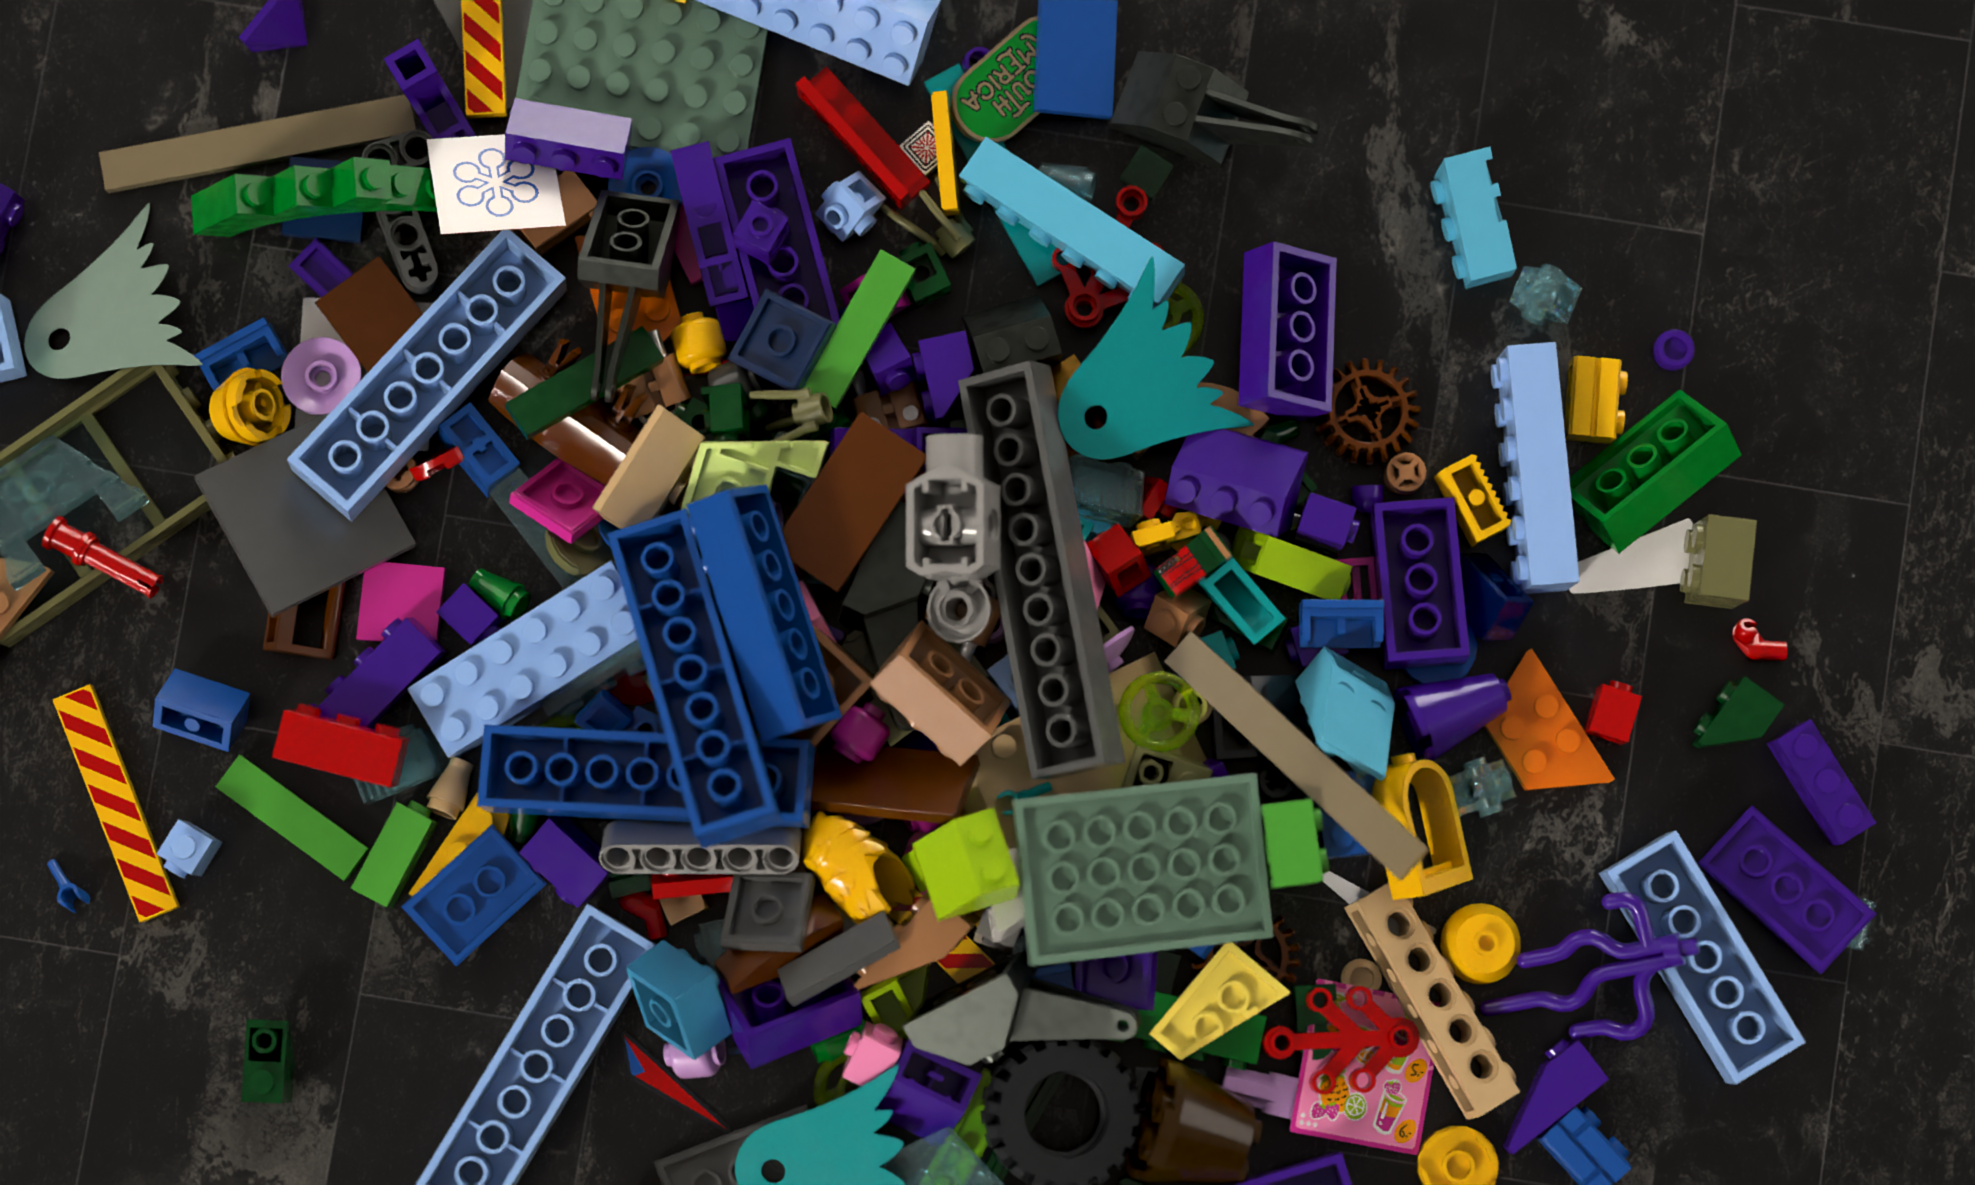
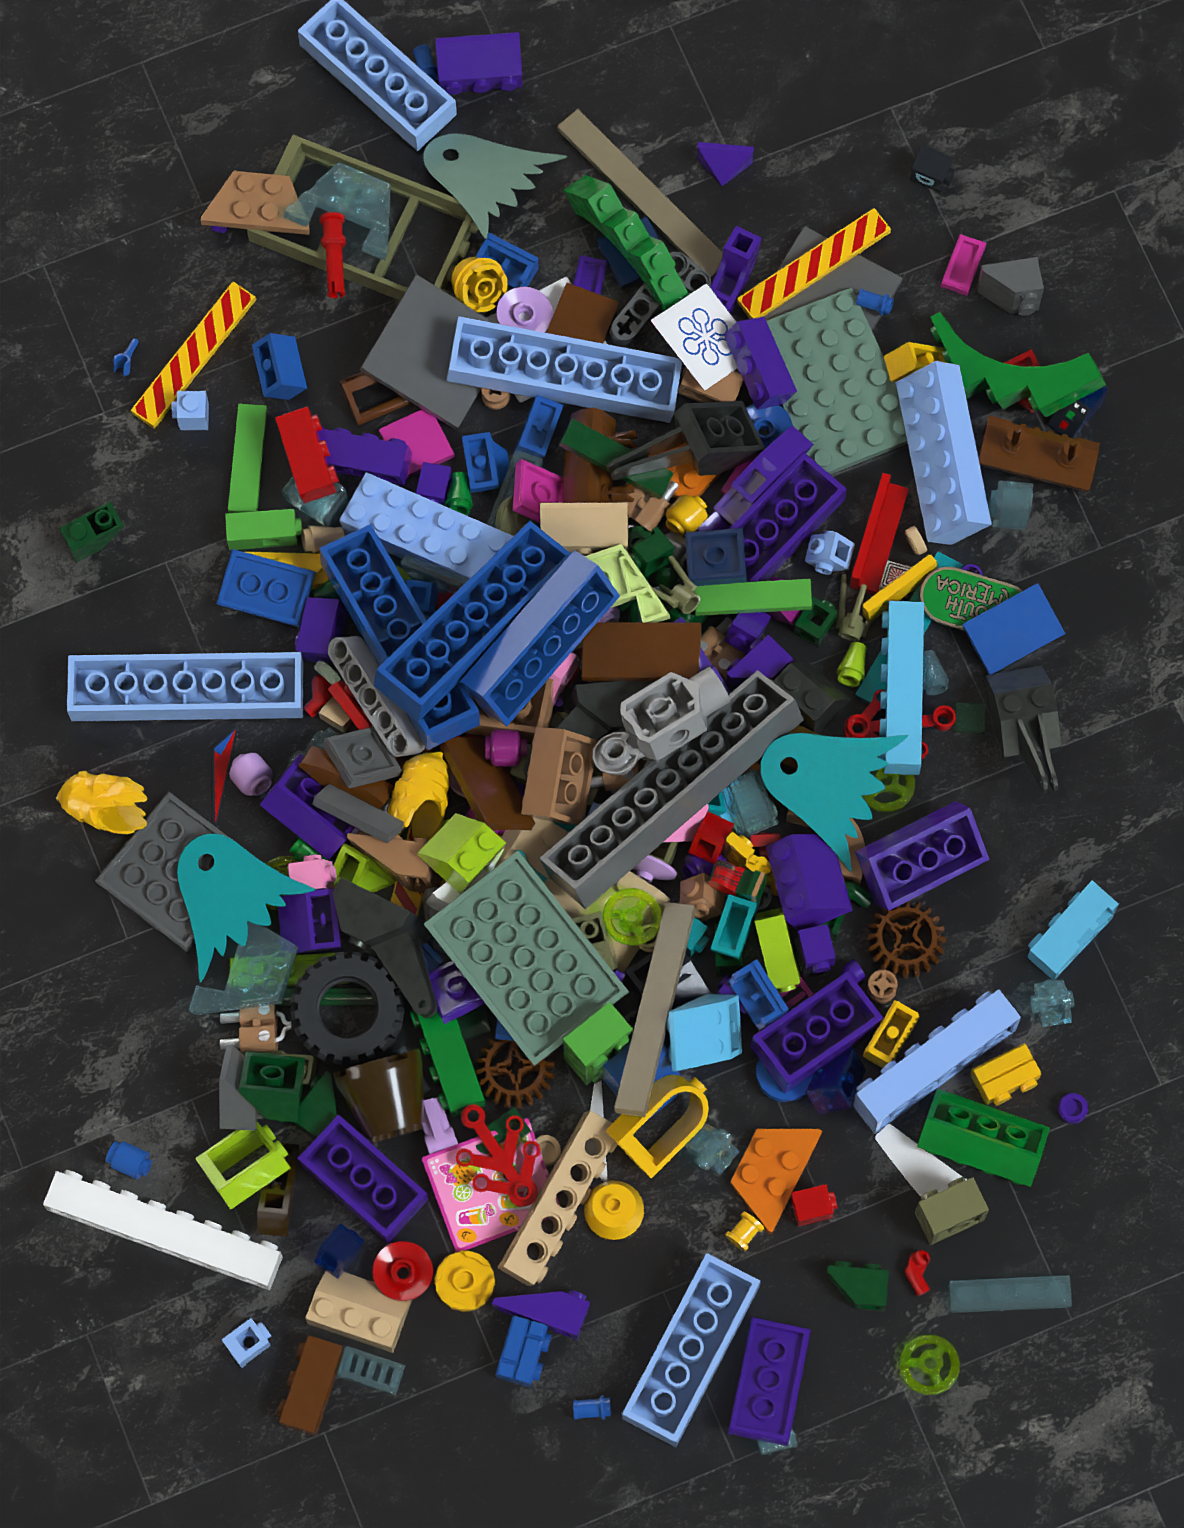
camera: 60 degrees right, 10 degrees down
(436, 462) = (513, 408): red tile -> none
(479, 538) = (485, 462): none -> blue slope
(679, 999) = (276, 739): dark azure brick -> none
(761, 232) = (774, 503): dark purple brick -> none
(896, 98) = (915, 541): none -> tan tile
(1001, 265) = (852, 668): none -> lime cone
(1216, 1001) = (474, 1060): light yellow wing -> none
(1449, 711) = (748, 1099): dark purple cone -> none
(1596, 810) = (744, 1231): none -> yellow bush
(1644, 957) = (667, 1308): dark purple plant -> none
(1695, 1110) = (592, 1408): none -> blue pin
(1821, 783) = (852, 1362): dark purple brick -> none
(1843, 555) = (1010, 1294): none -> clear light blue plate
(1883, 692) = (936, 1355): none -> clear neon green piece

